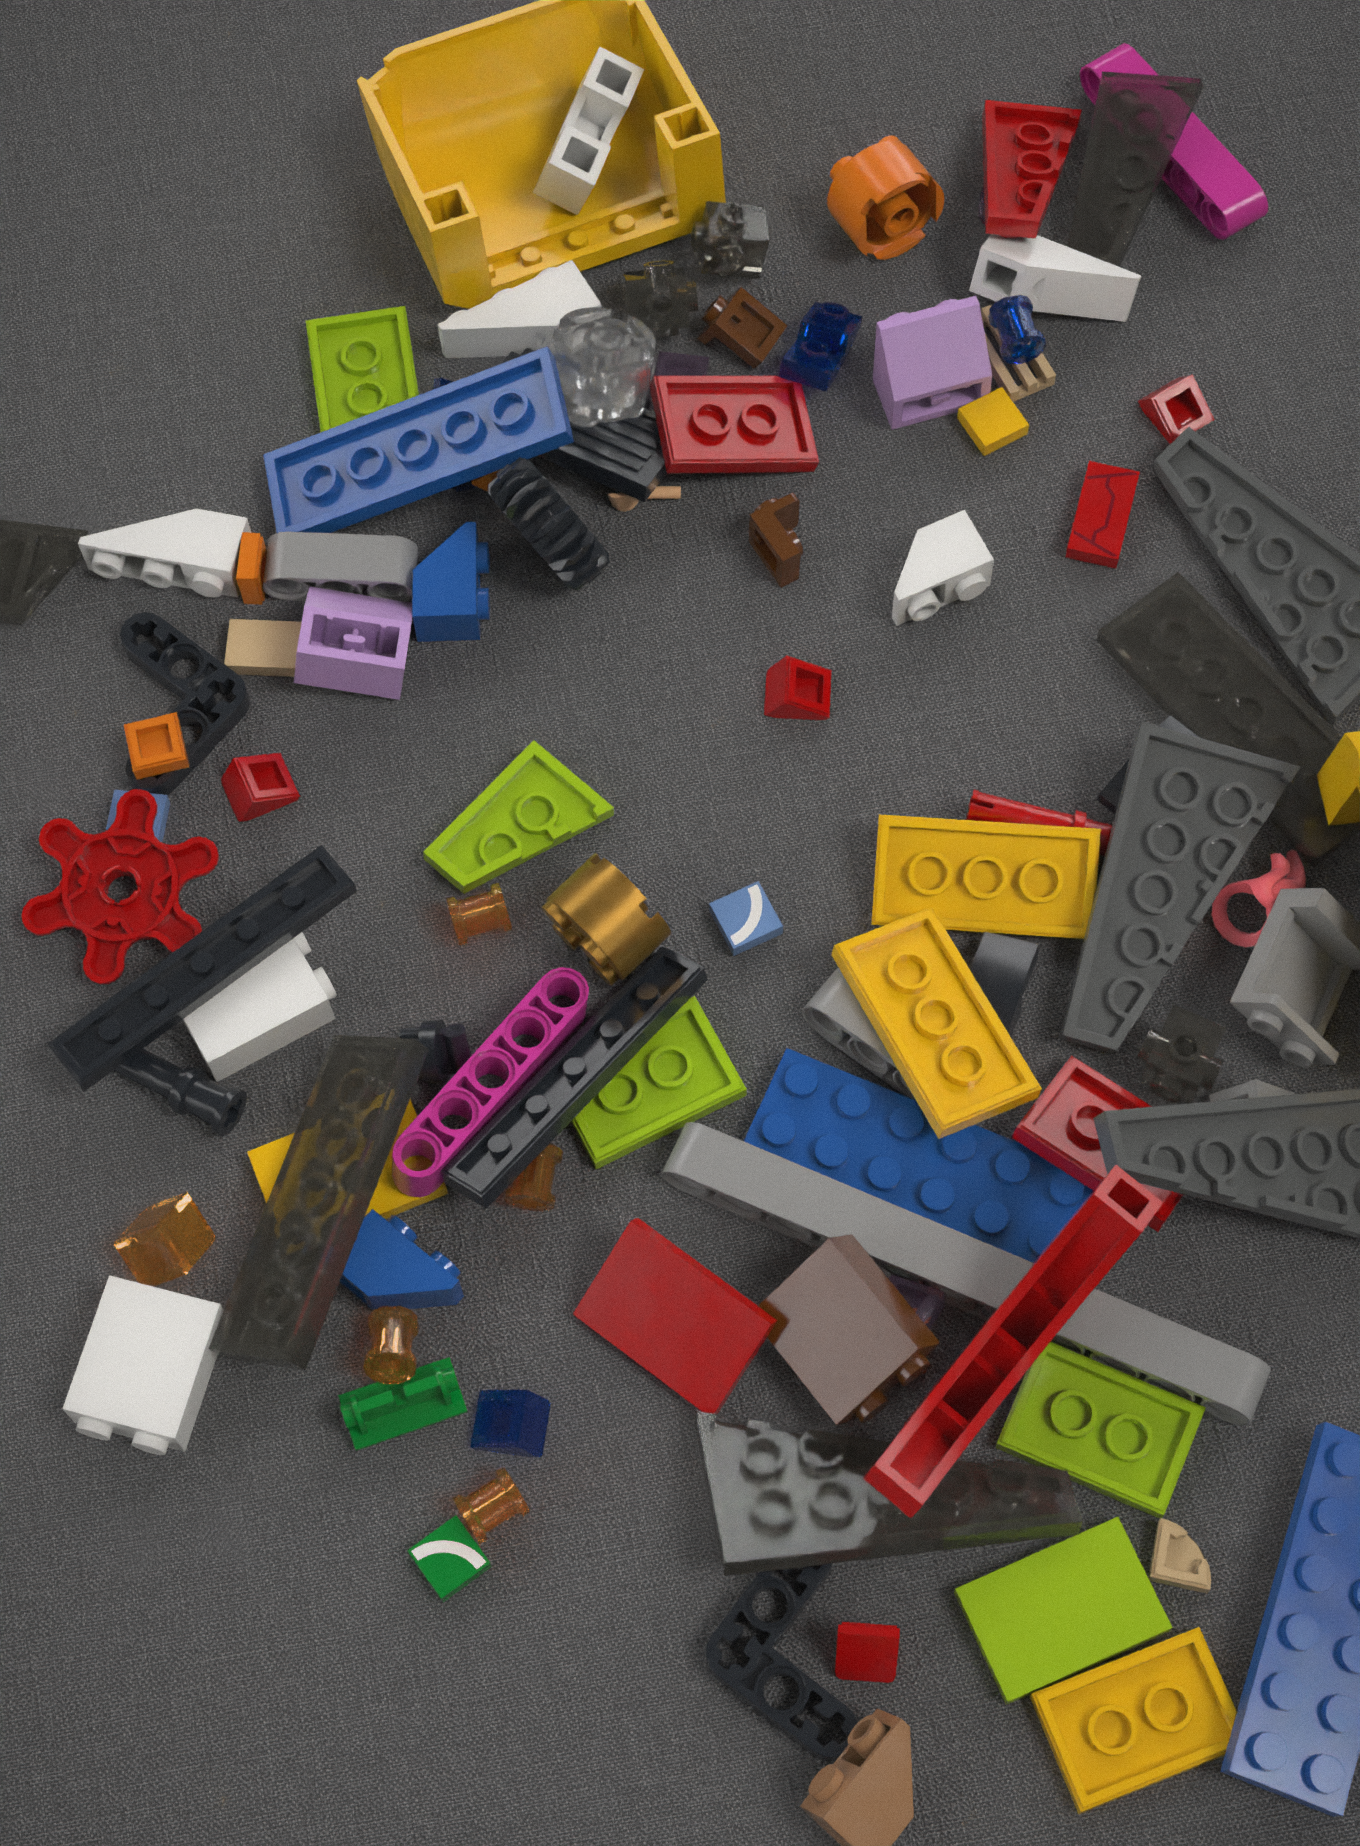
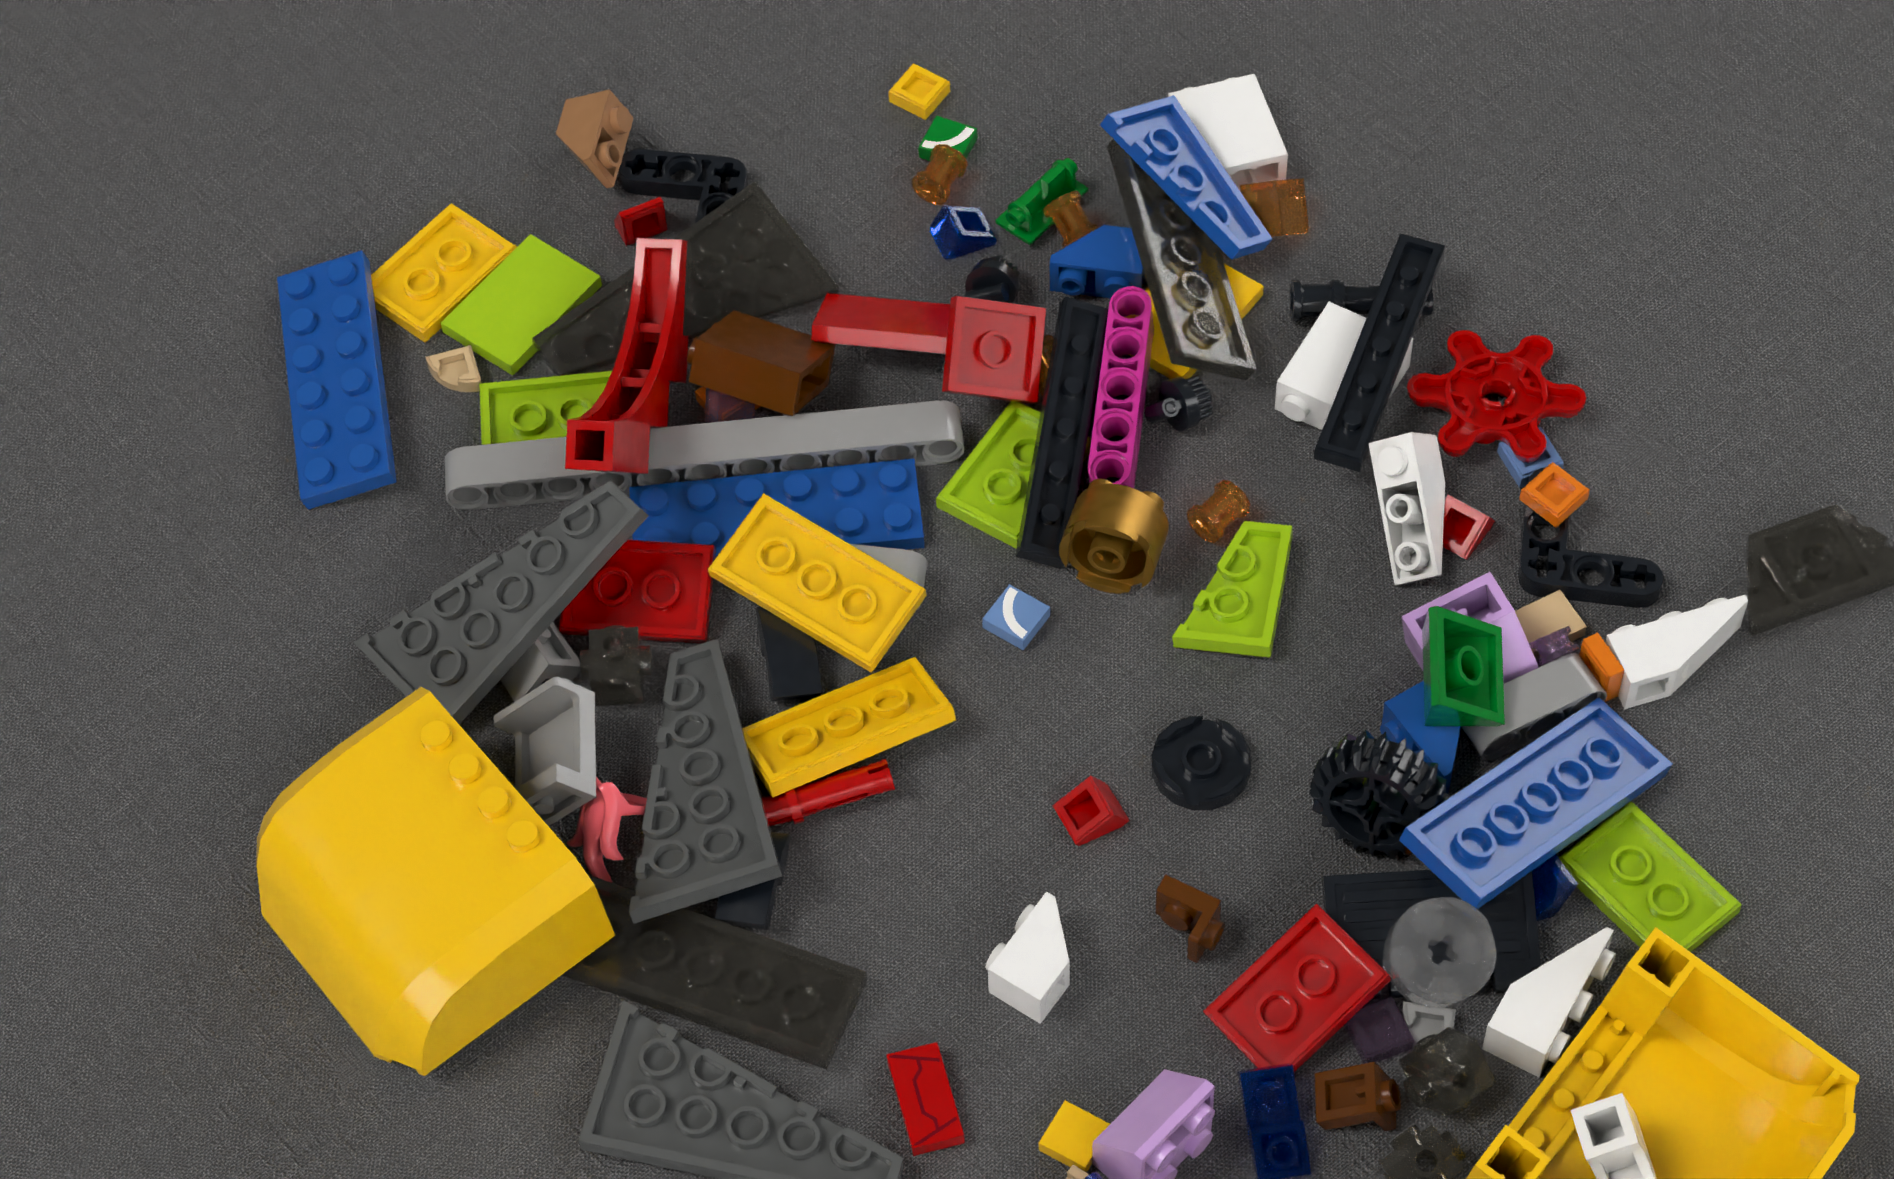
camera: 150 degrees right, 10 degrees down
(241, 1295) = (1185, 167): none -> blue wing
(282, 586) = (1553, 645): none -> clear purple bush
(294, 809) = (1411, 503): none -> white slope
(402, 575) = (1462, 670): none -> green slope
(433, 1660) = (919, 91): none -> yellow tile
(530, 1313) = (993, 280): none -> black piece
(594, 1184) = (994, 349): none -> red plate
(668, 684) = (1201, 763): none -> black tile

